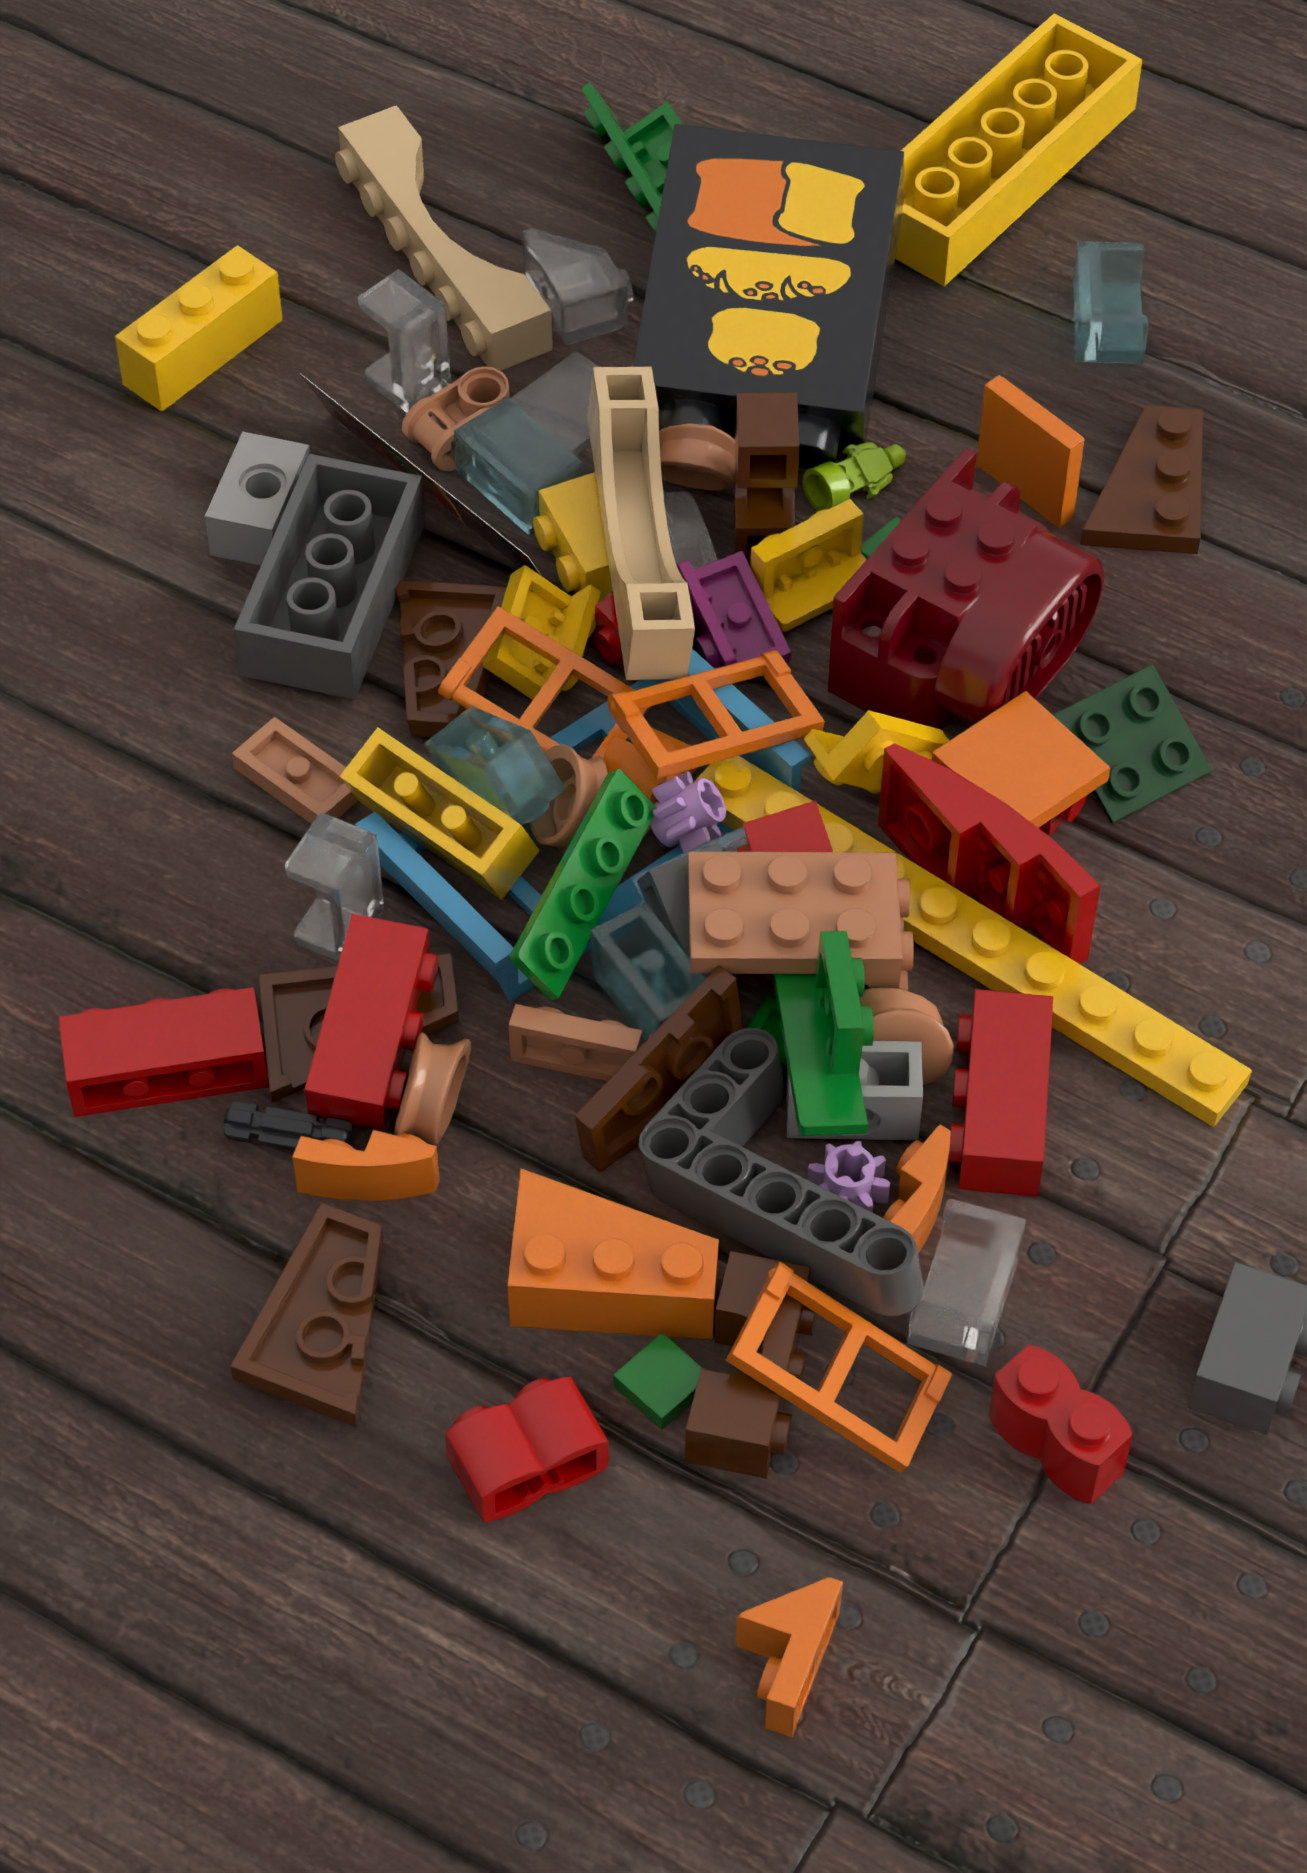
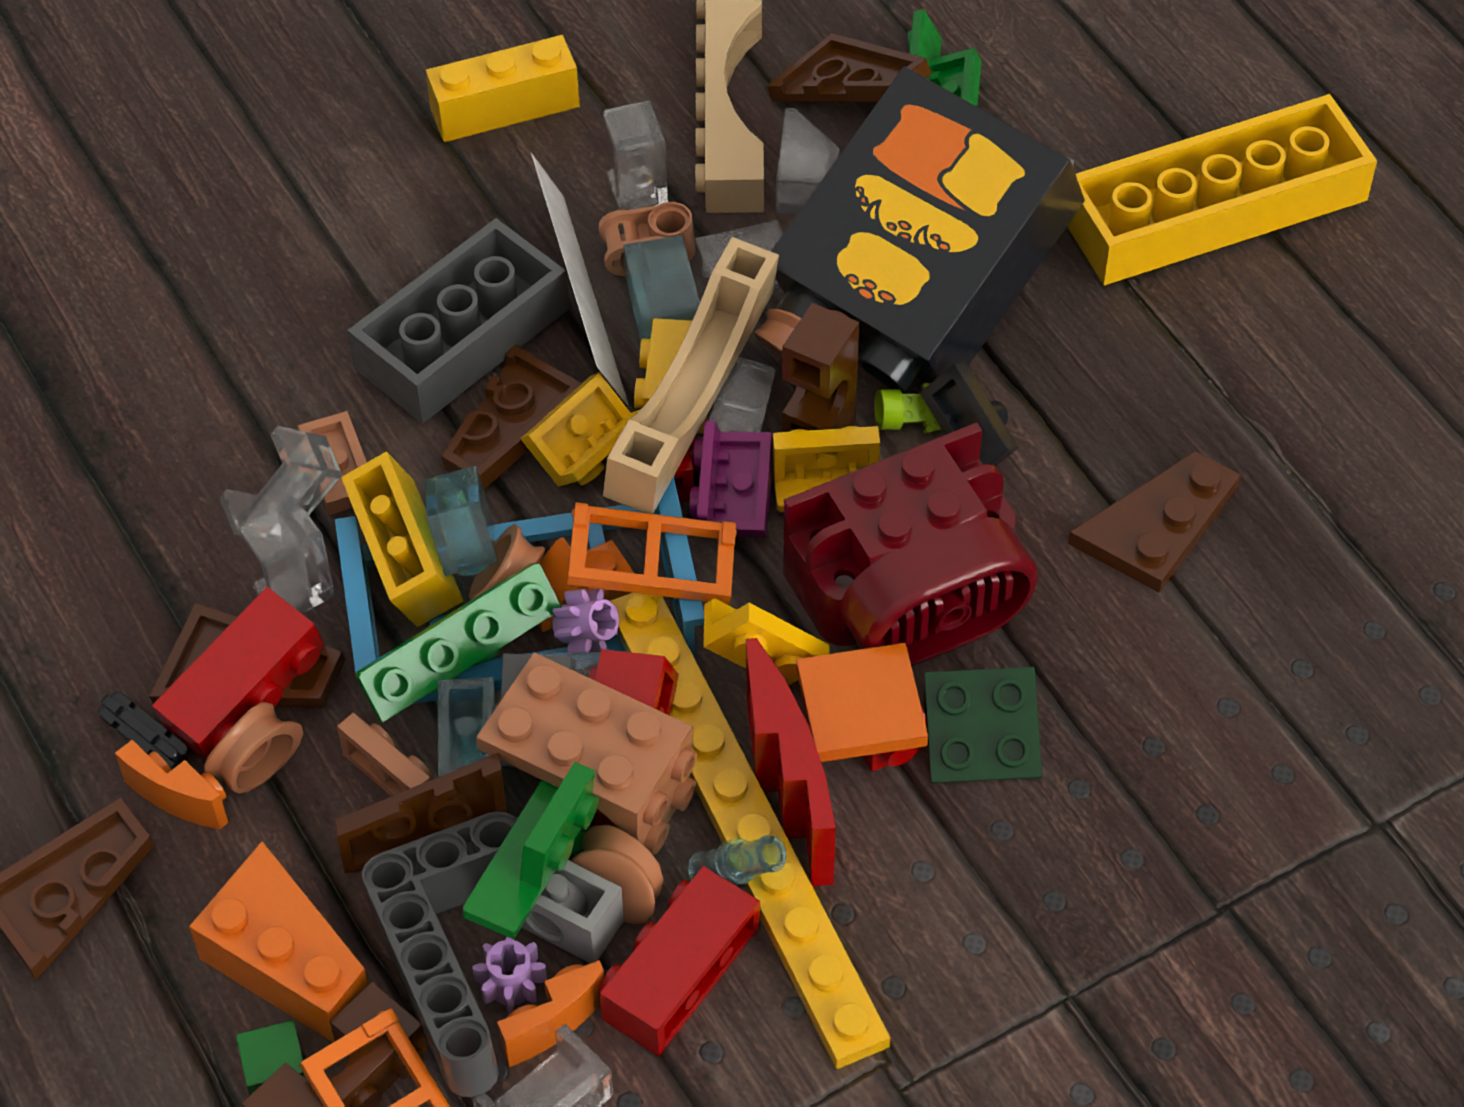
camera: 30 degrees right, 0 degrees up
(163, 1051) = (92, 628): red brick -> none
(253, 496) = (447, 227): light grey brick -> none
(283, 811) = (305, 474): none -> clear panel
(526, 1447) = (132, 1058): red brick -> none
(559, 171) = (843, 72): none -> reddish brown wing
(568, 664) = (577, 465): orange window -> none
(907, 452) = (960, 401): none -> black tile
(1006, 967) = (741, 859): none -> clear light blue pin
(1030, 449) = (1058, 448): orange tile -> none
(1108, 302) = (1224, 353): clear light blue panel -> none

